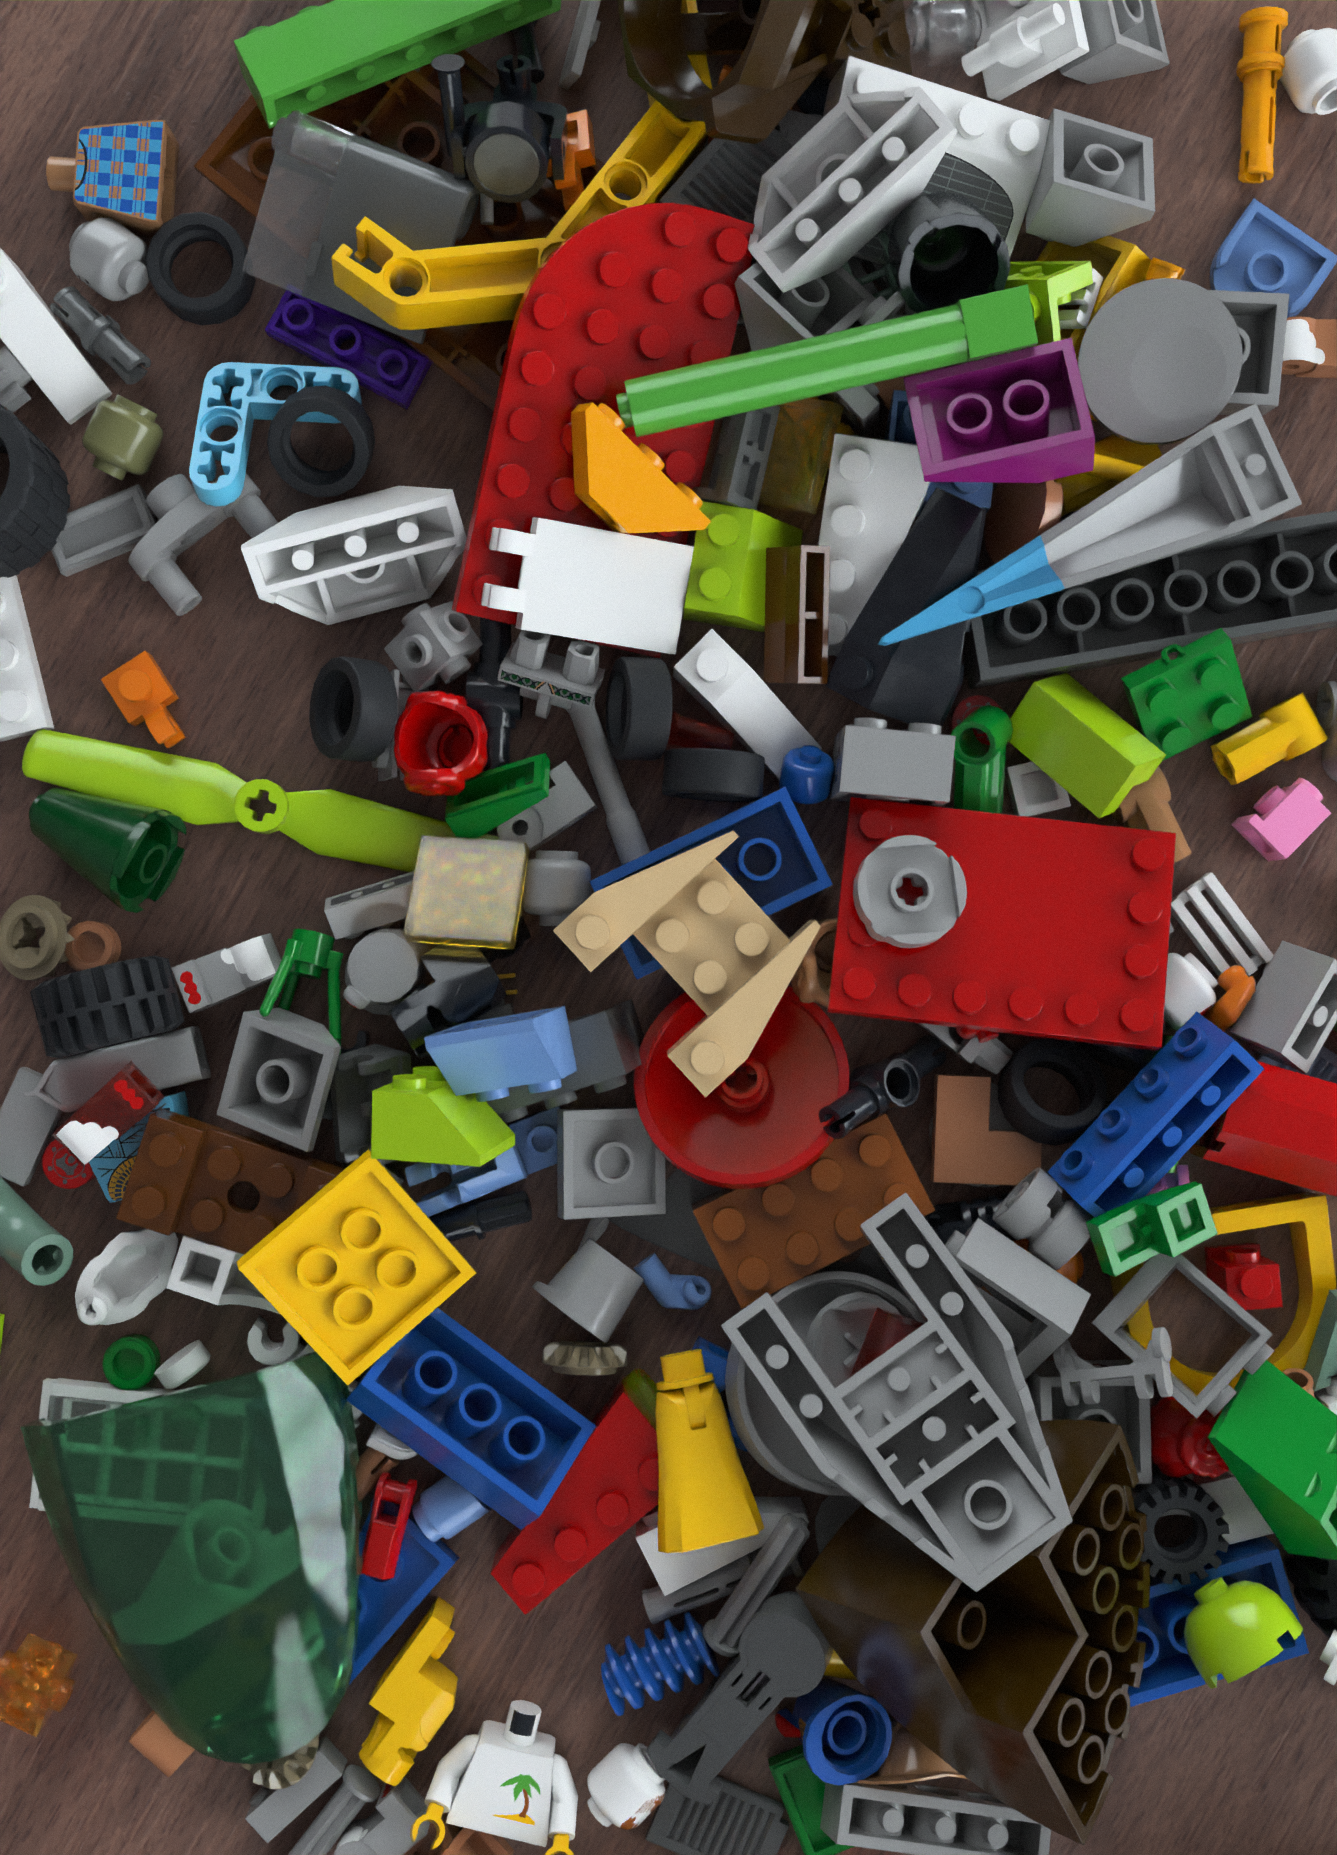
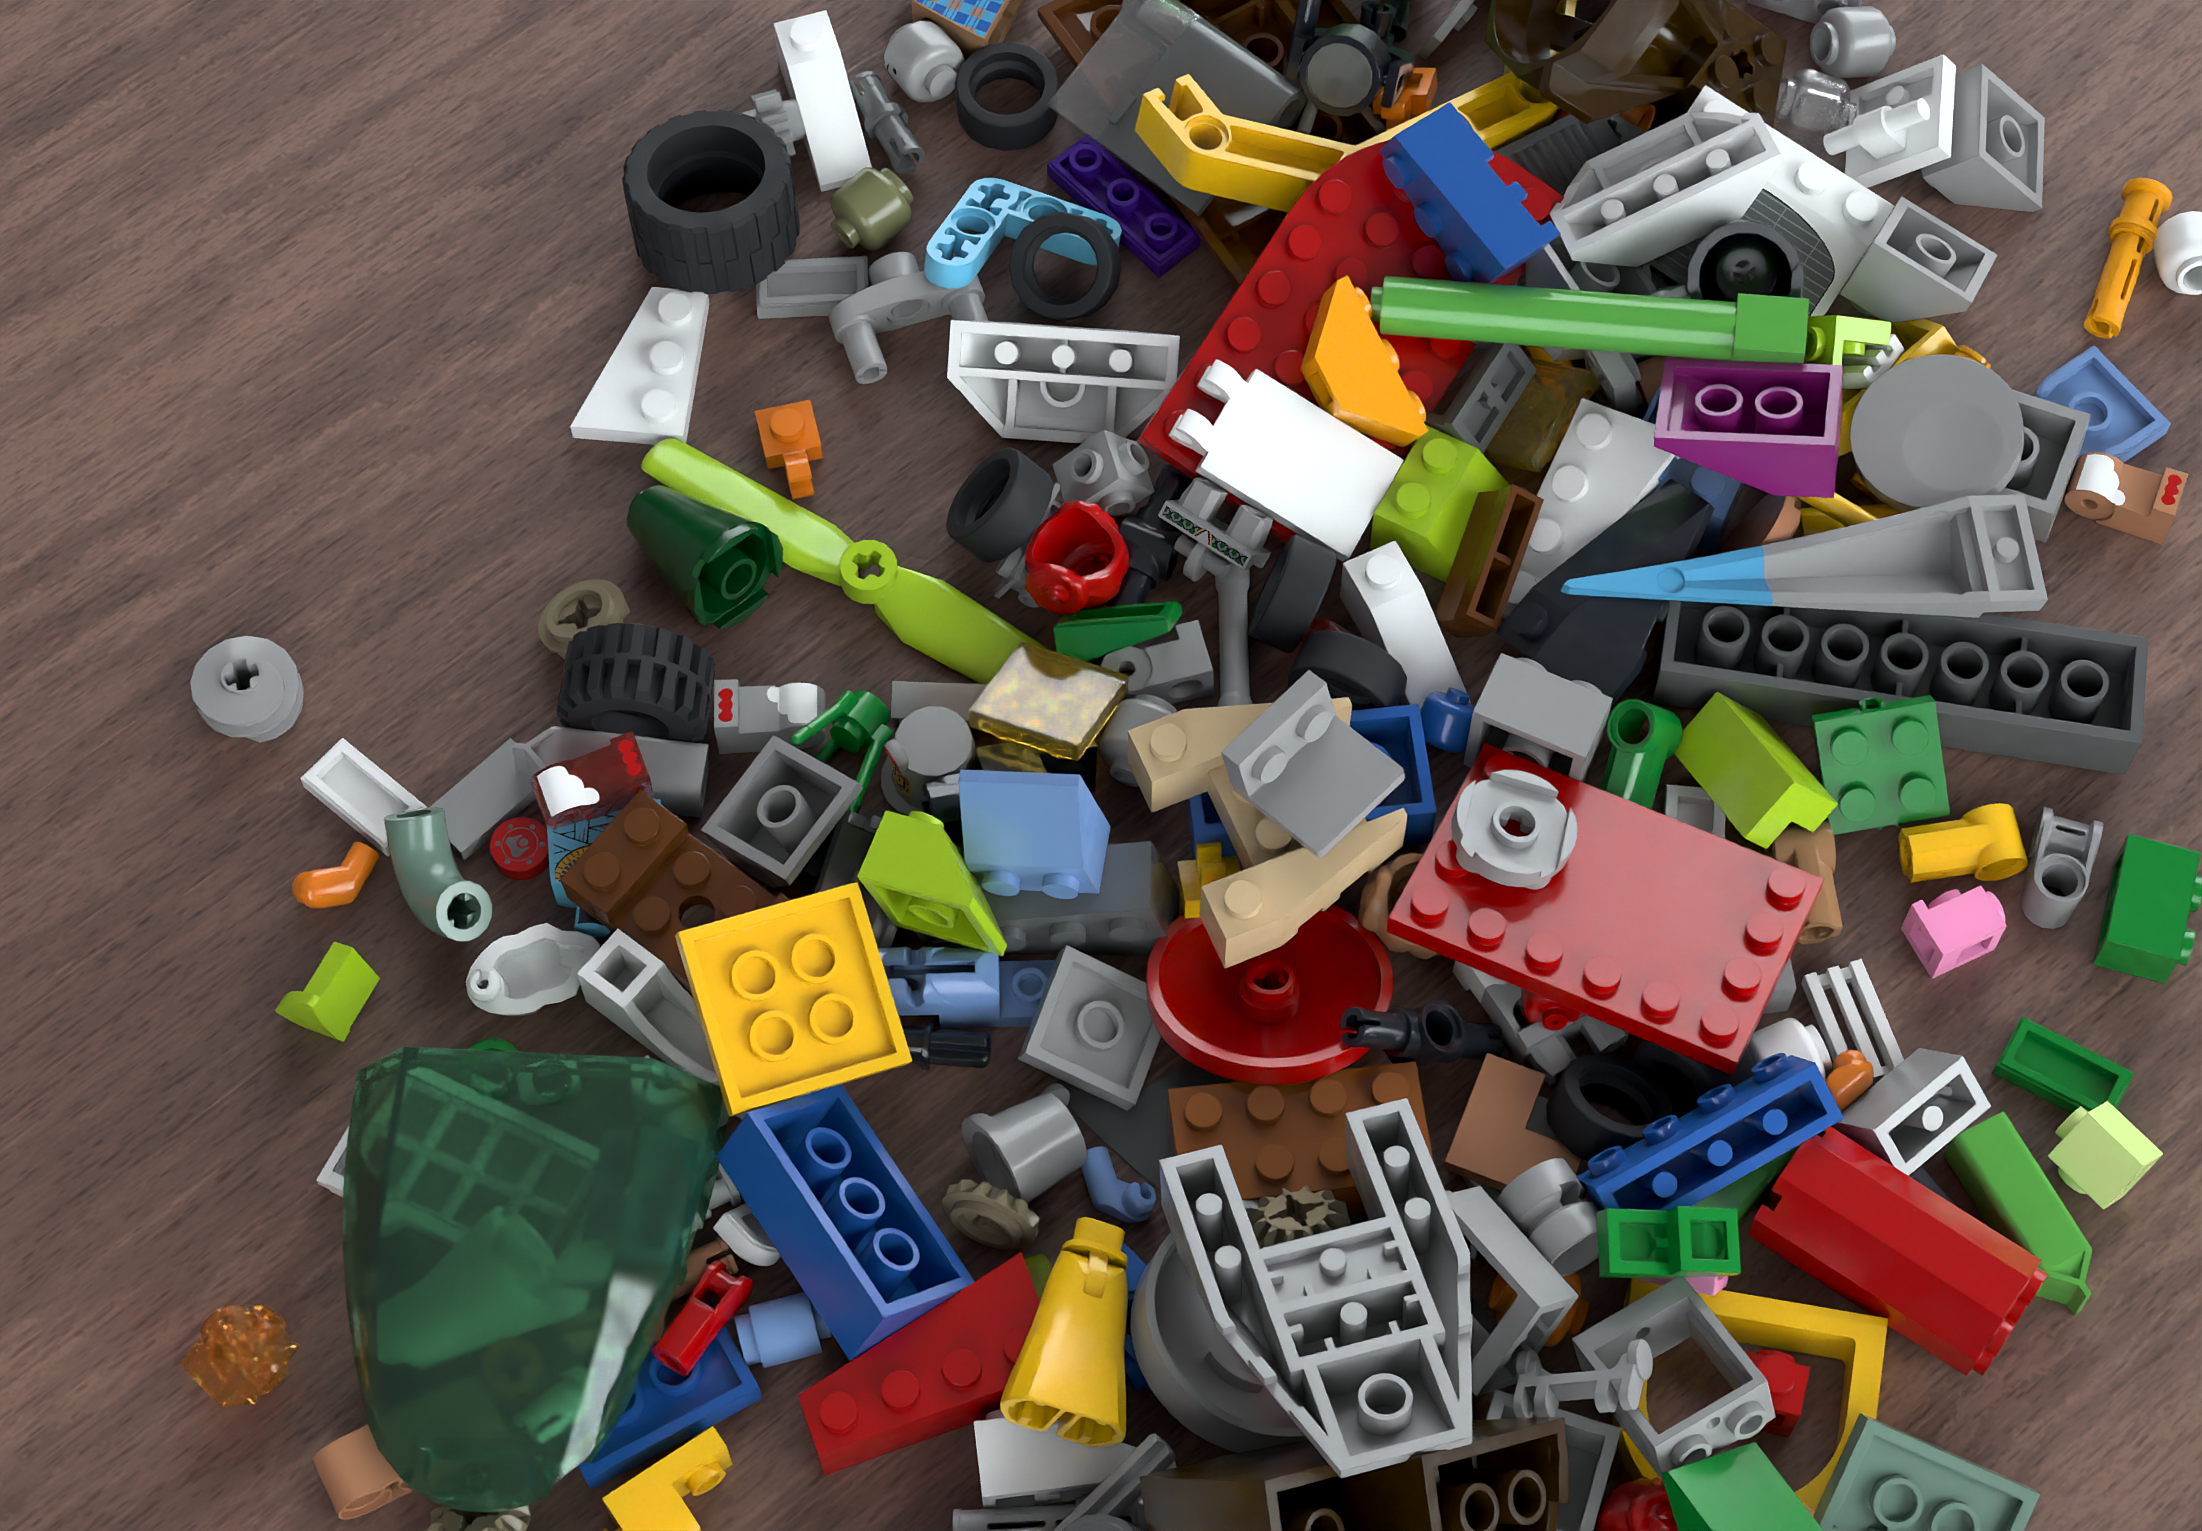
camera: 20 degrees right, 25 degrees down
(660, 1002) = (1204, 870): none -> yellow tile
(673, 278) = (1463, 199): none -> blue wedge
(731, 925) = (1309, 767): none -> light grey bracket
(834, 1327) = (1275, 1217): none -> dark tan gear

